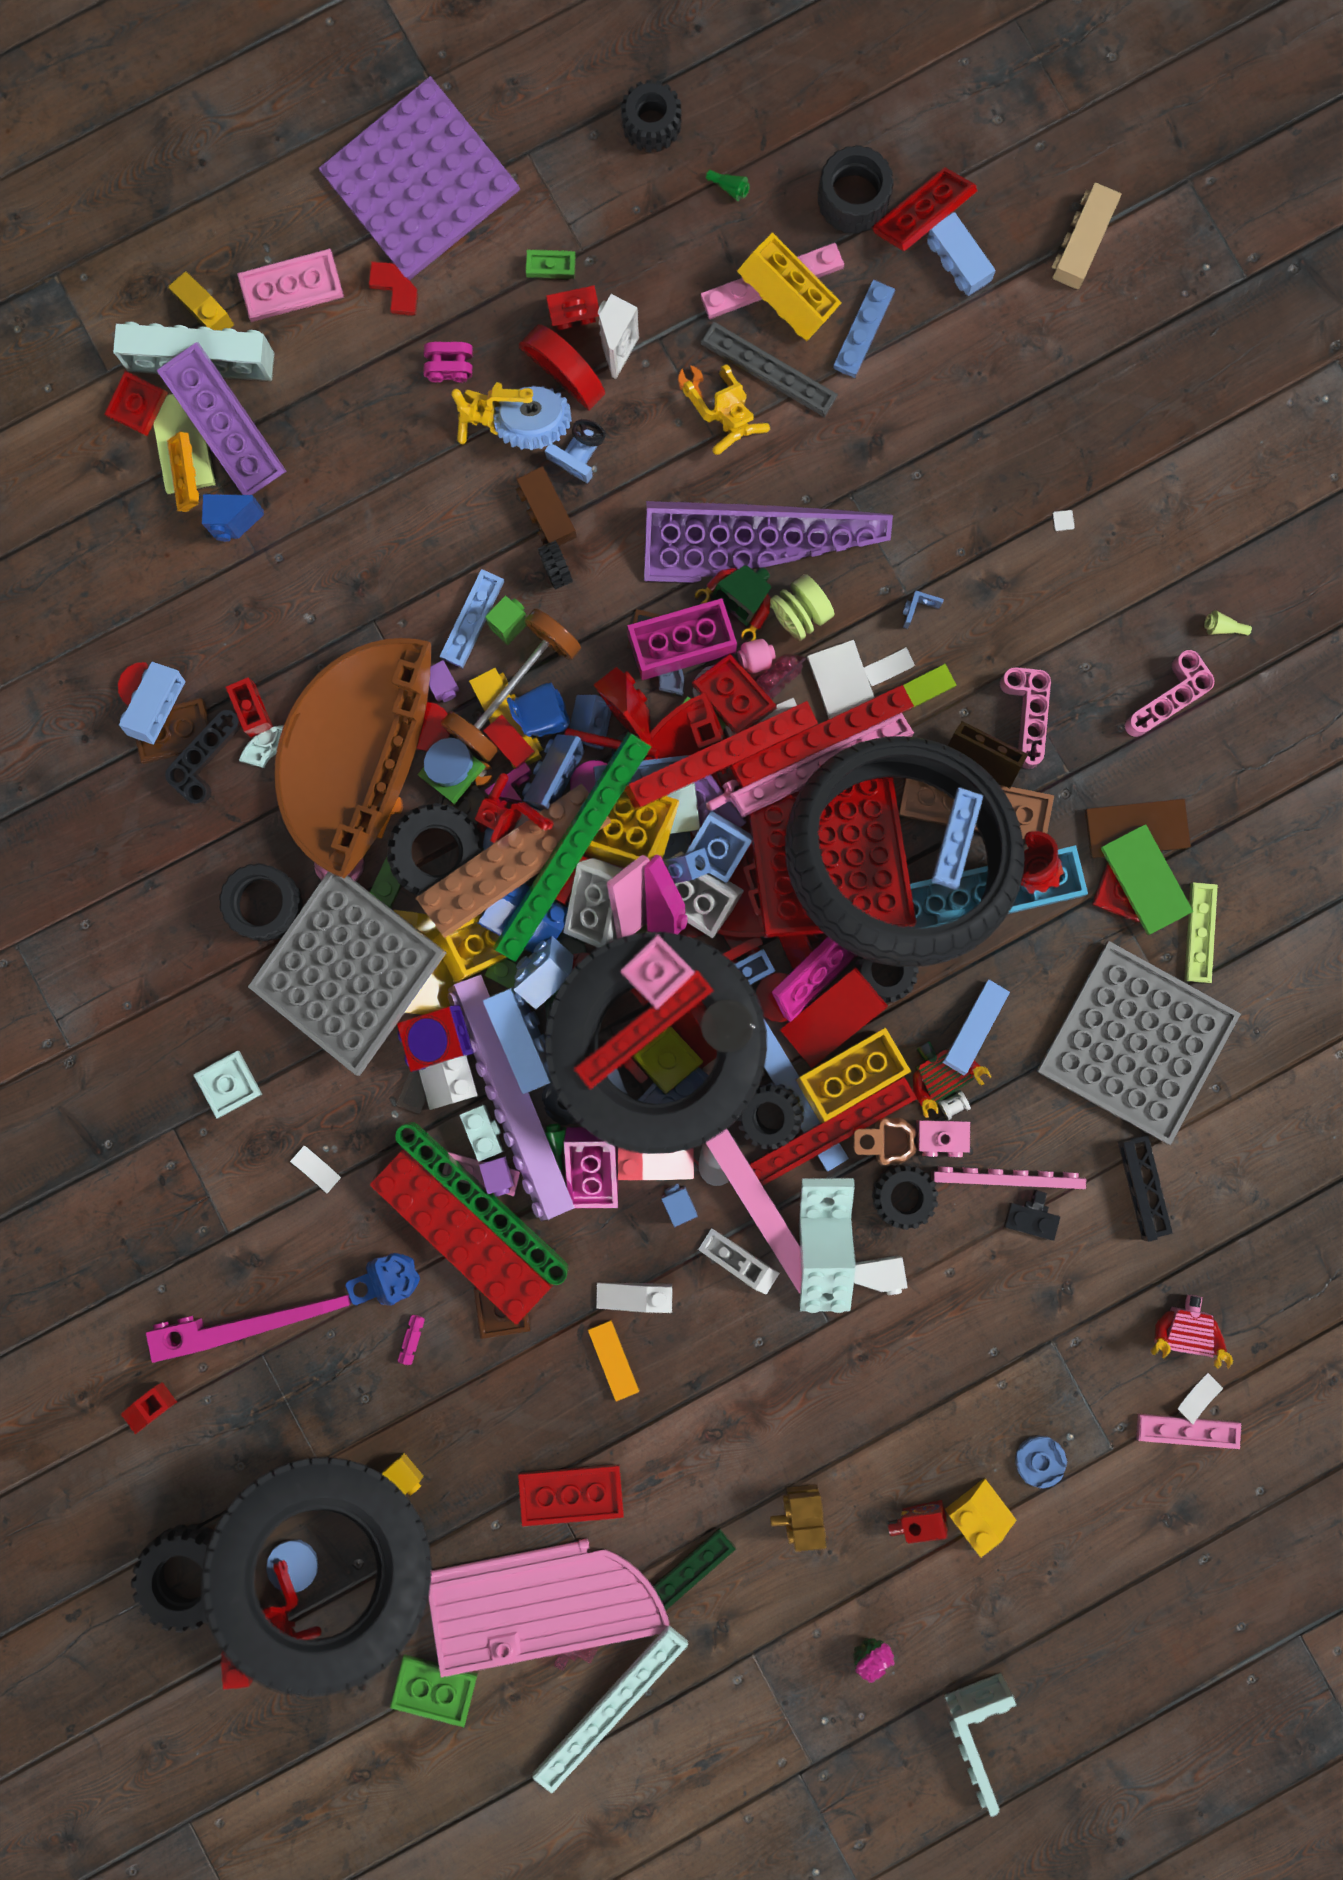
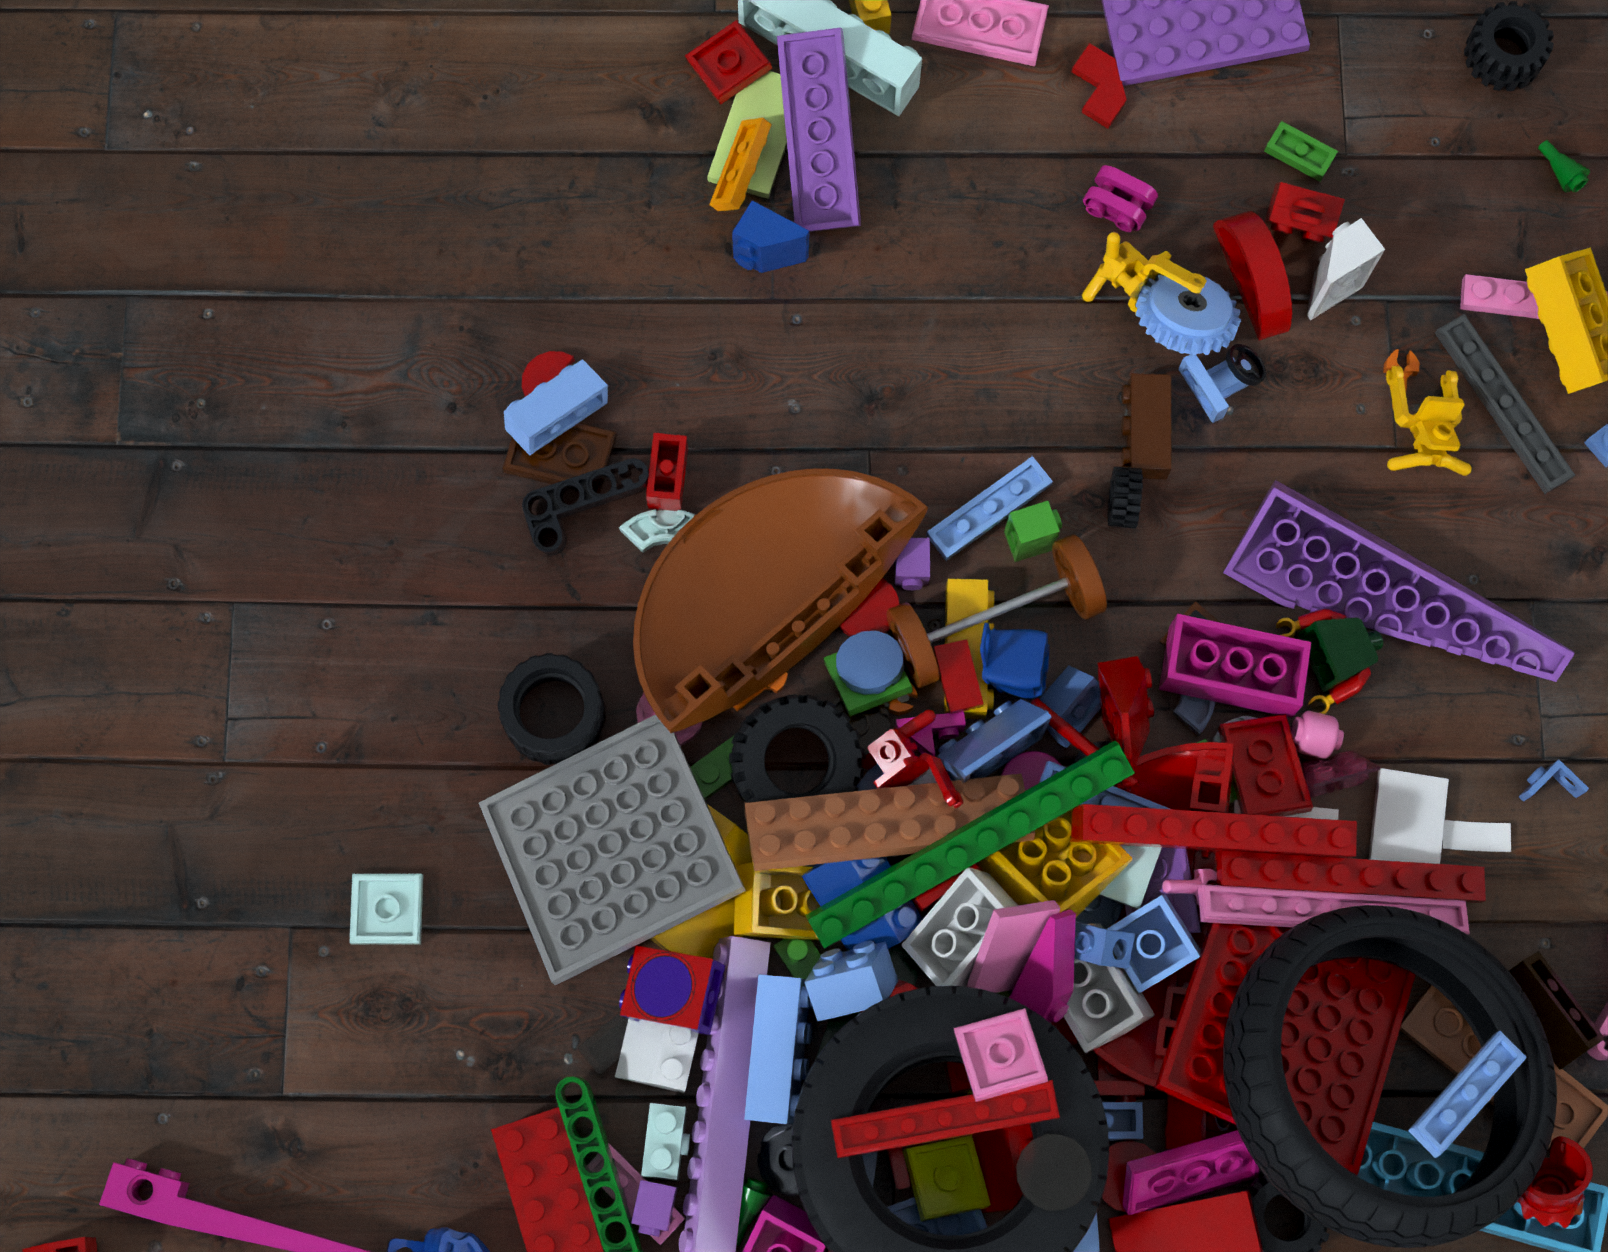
camera: 25 degrees right, 10 degrees down
(315, 1169) = (433, 1074): white sticker -> none
(806, 605) = (1405, 705): yellowish green wheel -> none
(930, 685) = (1518, 886): lime tile -> none

